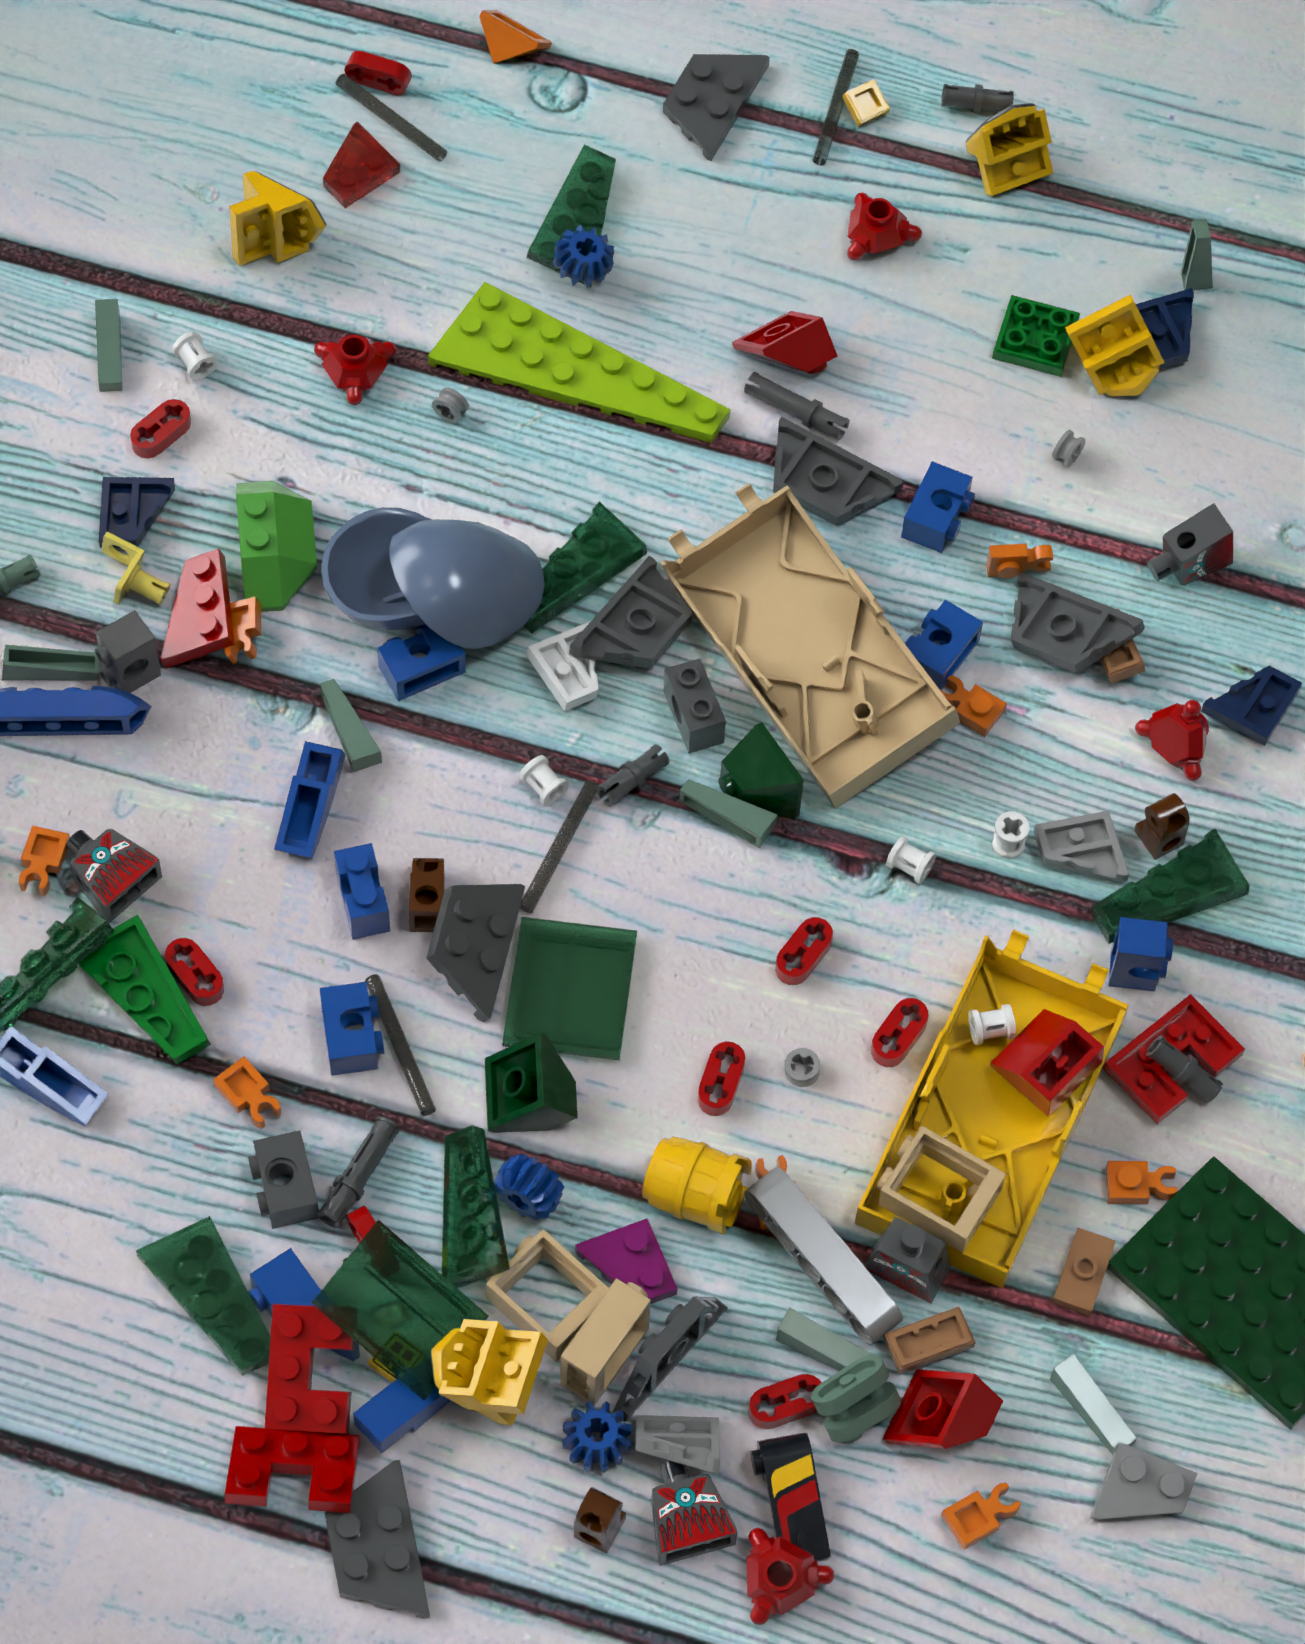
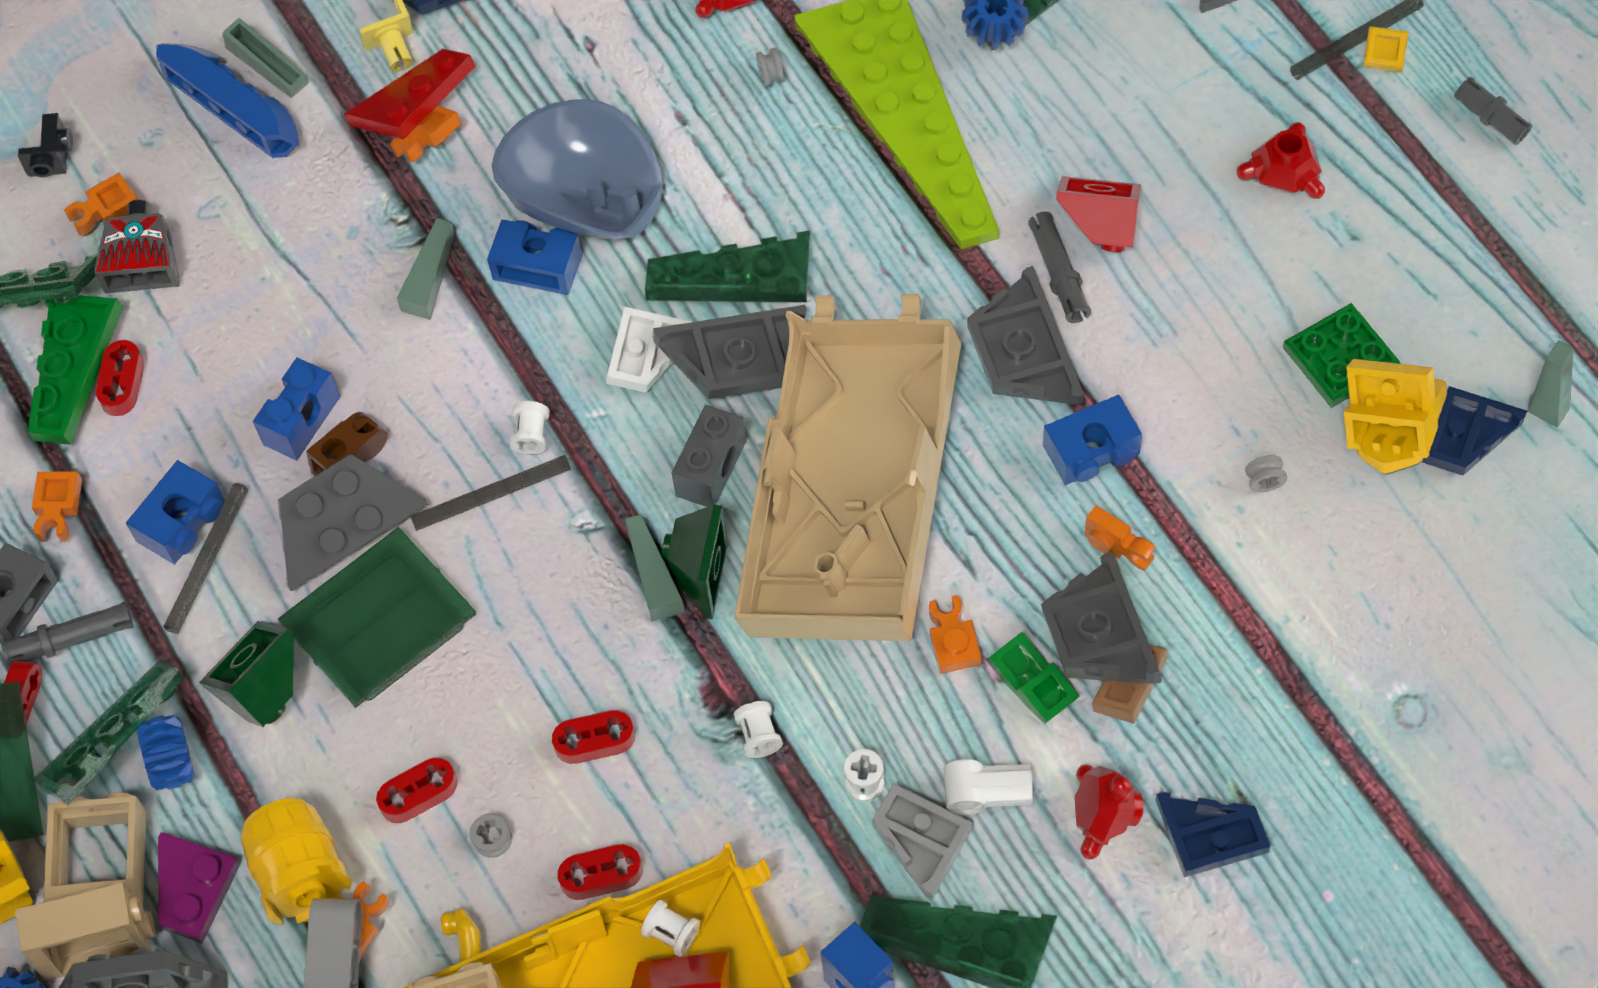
camera: 50 degrees right, 0 degrees up
(127, 653) = (313, 87): dark grey brick -> none
(274, 542) = (517, 76): bright green wedge -> none
(309, 799) = (337, 306): blue slope -> none
(467, 579) = (617, 212): sand blue piece -> none
(632, 775) = (604, 478): dark grey pin -> none
(854, 1138) = (466, 930): none -> yellow arm
(957, 634) = (994, 573): blue brick -> none
(1012, 148) = (1473, 171): yellow piece -> none
(1055, 694) = (1032, 679): none -> green slope
(1087, 788) = (974, 787): none -> white piece
(1164, 822) = (1004, 873): reddish brown leg -> none
(1195, 548) = (1287, 646): dark grey torso -> none

